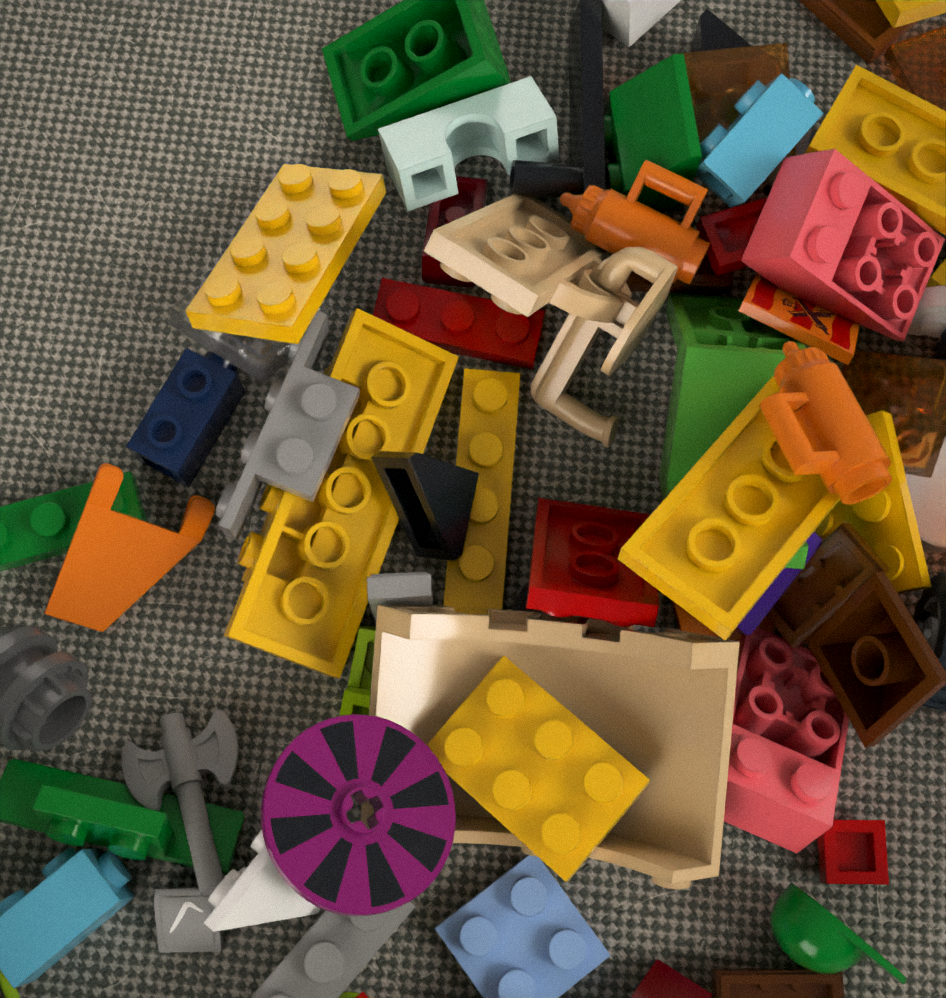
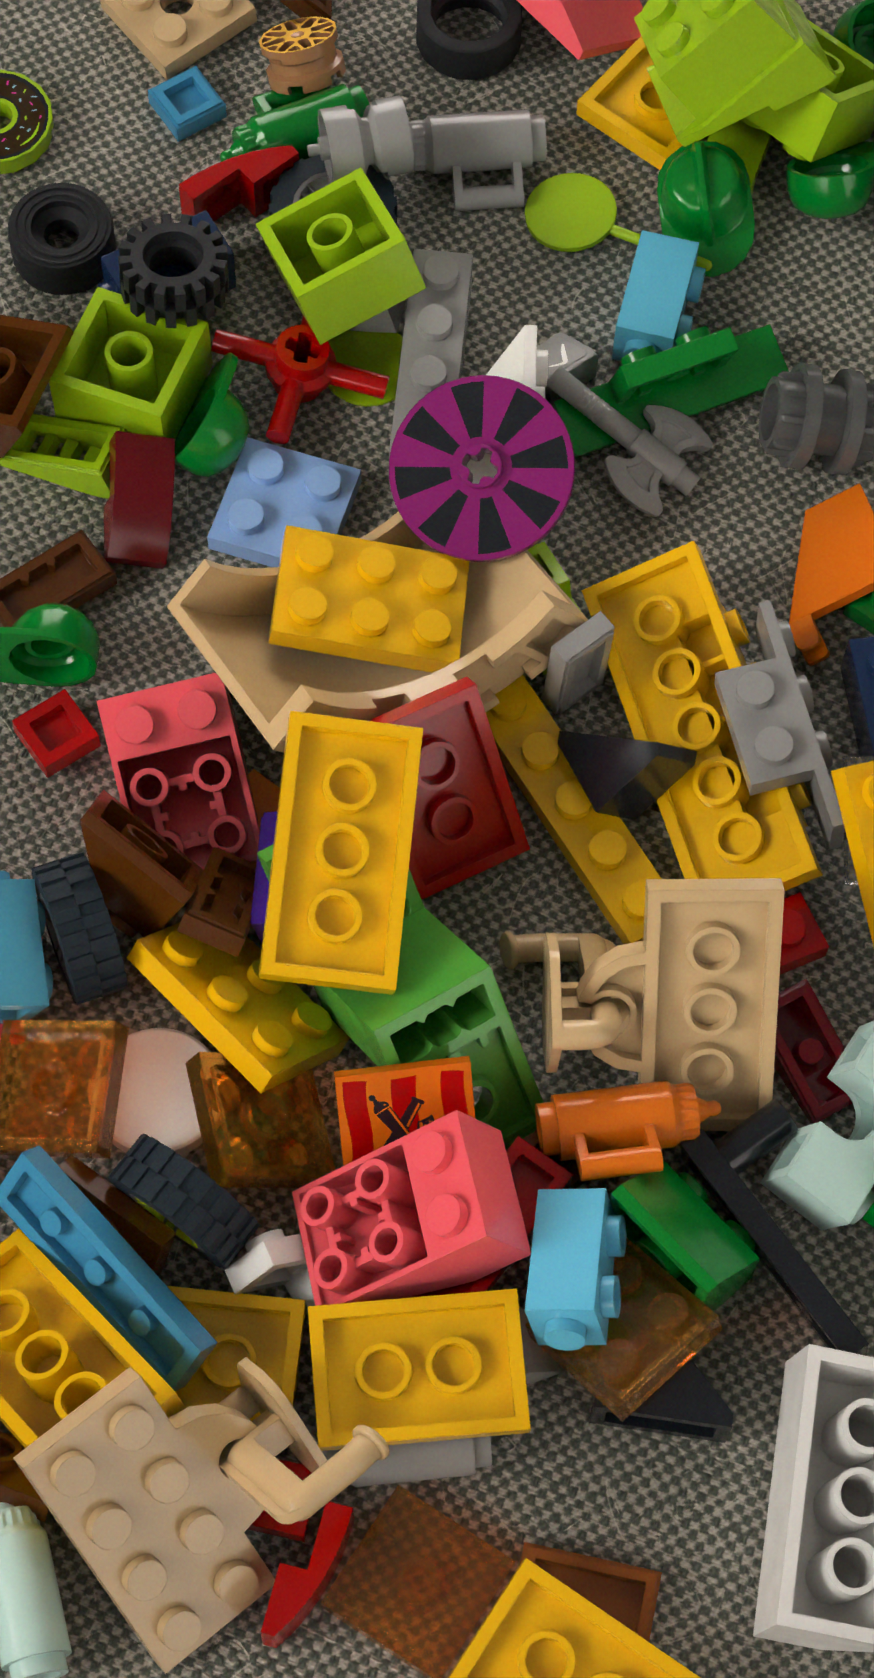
camera: 145 degrees right, 10 degrees down
(824, 426) = (321, 940): orange piece -> none

